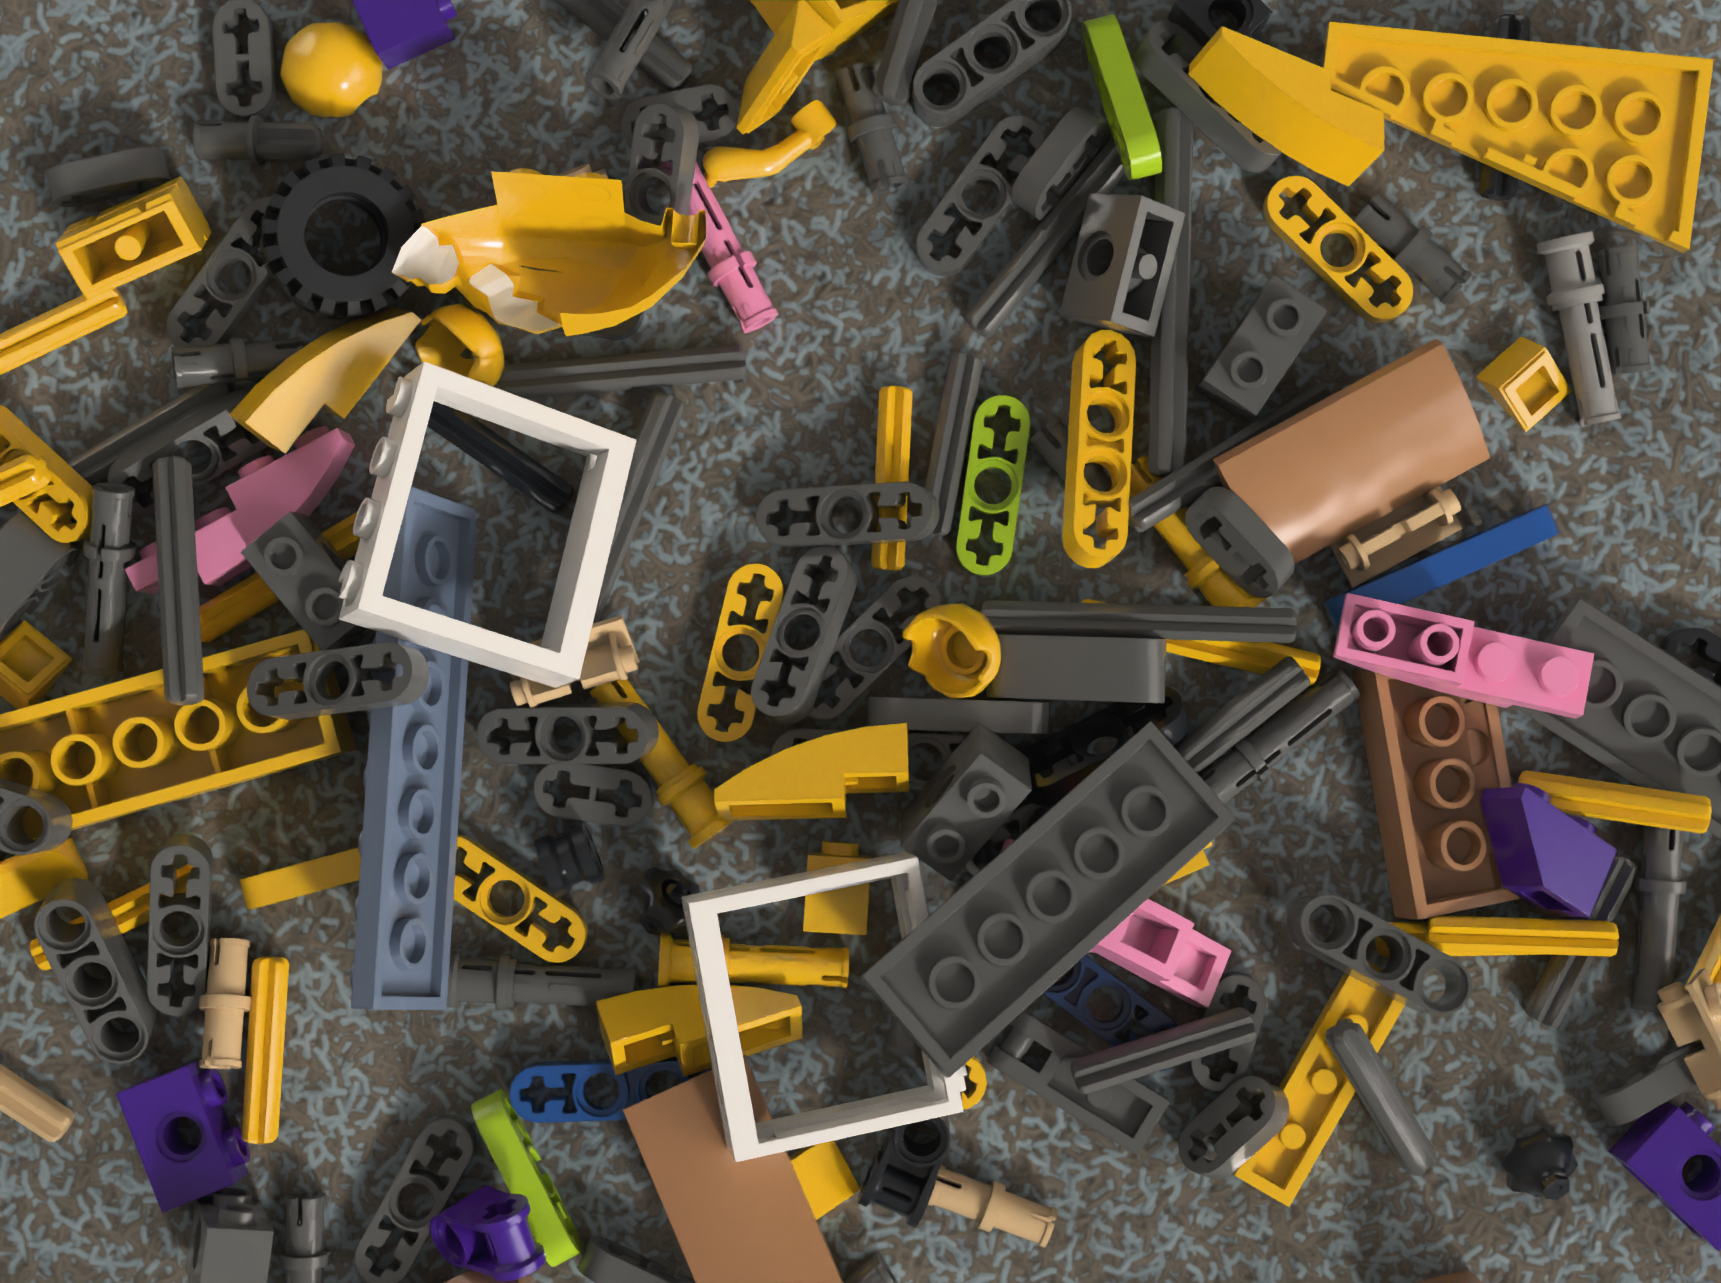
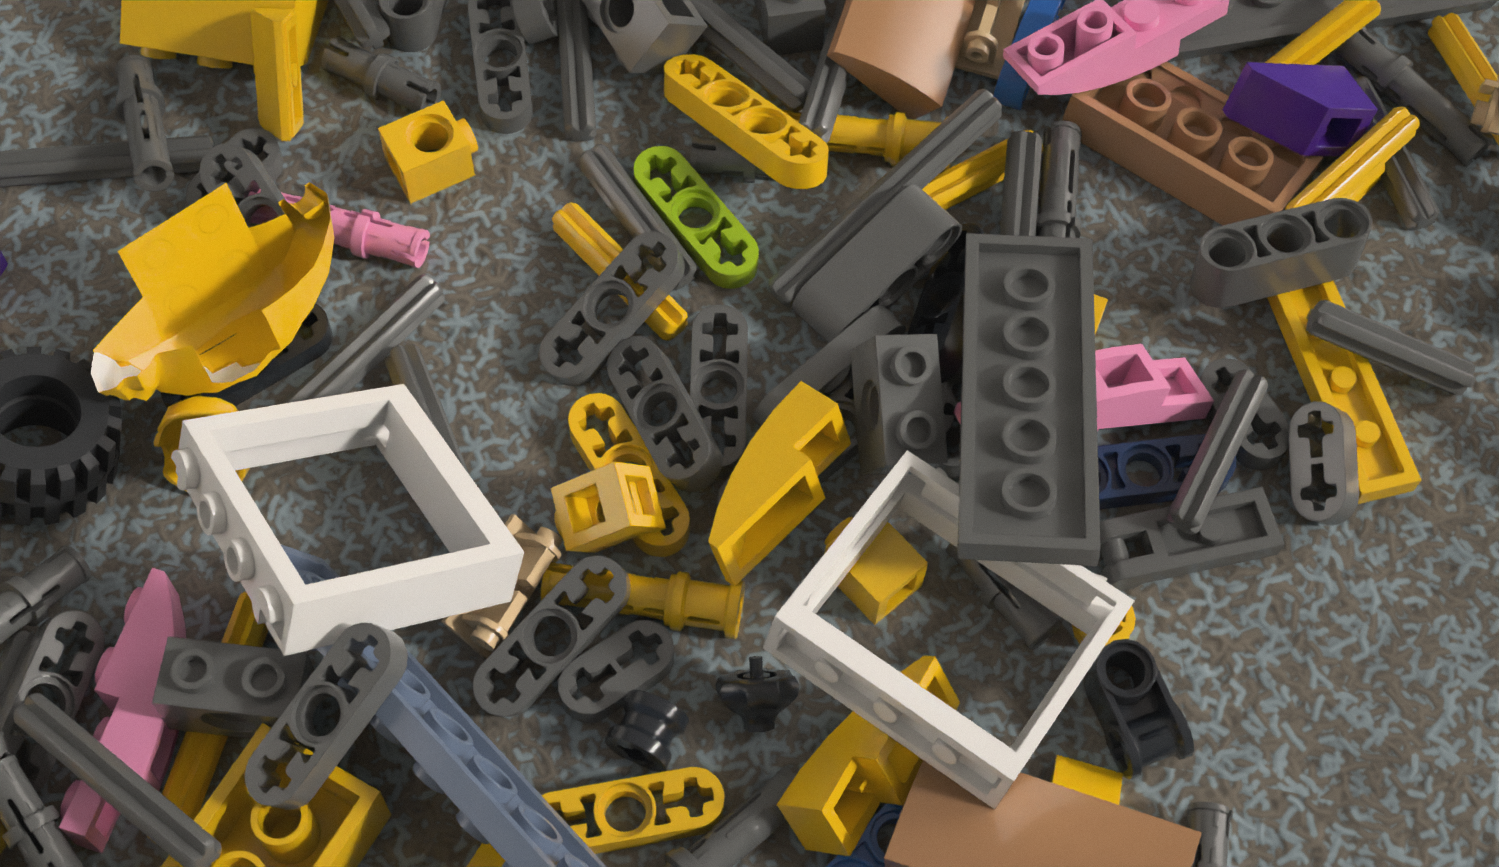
camera: 50 degrees left, 25 degrees down
(323, 375) = (107, 551): yellow slope -> none
(501, 457) = (323, 496): black axle -> none
(686, 681) = (607, 507): none -> yellow brick
(741, 163) = (334, 108): yellow piece -> none
(758, 964) = (821, 713): yellow pin -> none
(826, 217) = (424, 172): none -> yellow brick
(954, 649) = (781, 319): yellow hair -> none
(993, 1206) = (1233, 683): tan pin -> none
(1239, 542) = (899, 88): dark grey beam -> none

